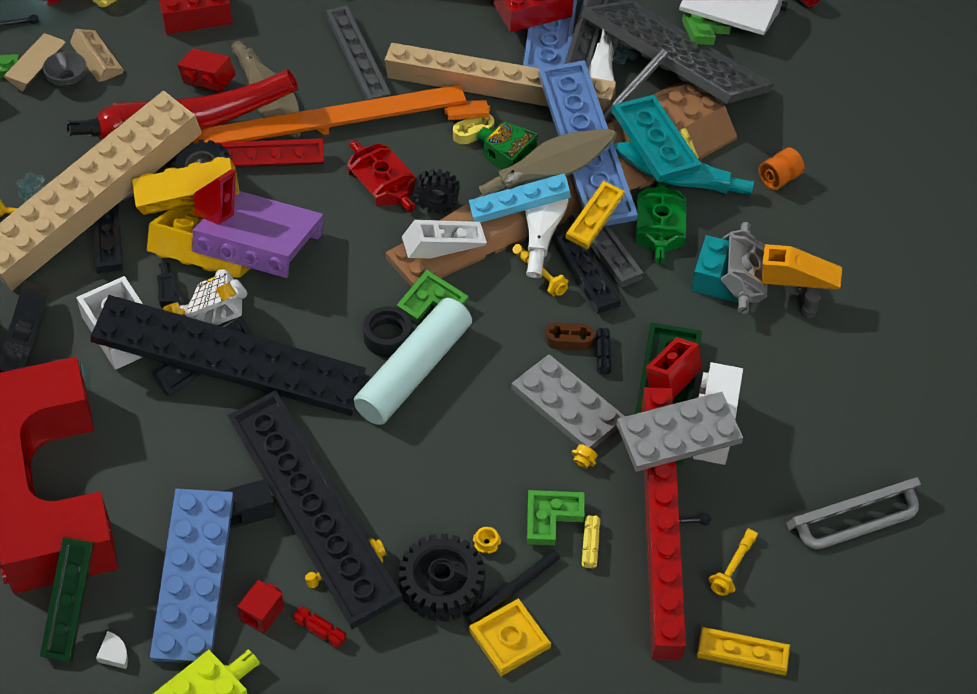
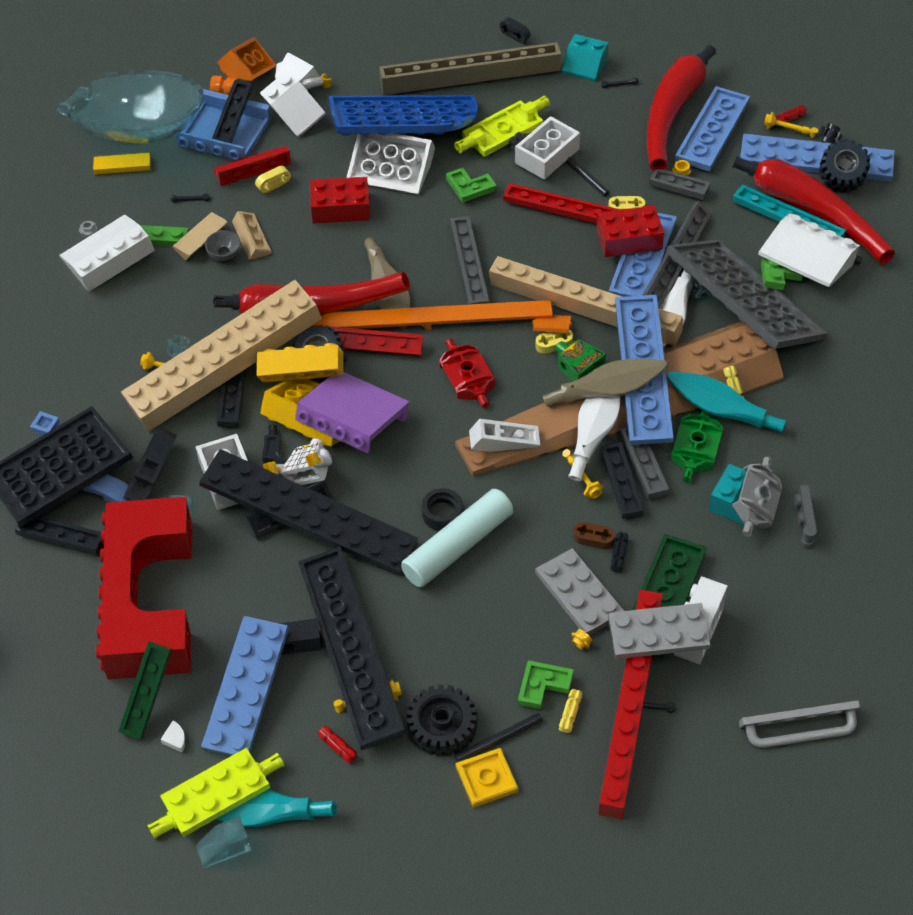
camera: 15 degrees right, 0 degrees up
(206, 69) = (338, 261): red brick -> none
(216, 199) = (321, 379): red slope -> none
(261, 606) = (294, 720): red brick -> none
(427, 293) = (480, 482): bright green plate -> none
(437, 181) = (508, 393): black tyre -> none
(489, 534) = (485, 690): yellow plate -> none
(520, 198) = (575, 410): medium azure plate -> none
(595, 215) = (636, 433): yellow tile -> none
(637, 82) = (697, 321): flat silver bar -> none
(656, 138) = (704, 372): teal plate -> none
(675, 366) = (672, 575): red brick -> none
(722, 583) = (670, 762): yellow piece -> none
(743, 651) = (675, 821): yellow tile -> none
(781, 168) = (813, 412): orange wheel -> none
(797, 268) = (797, 504): light orange slope -> none

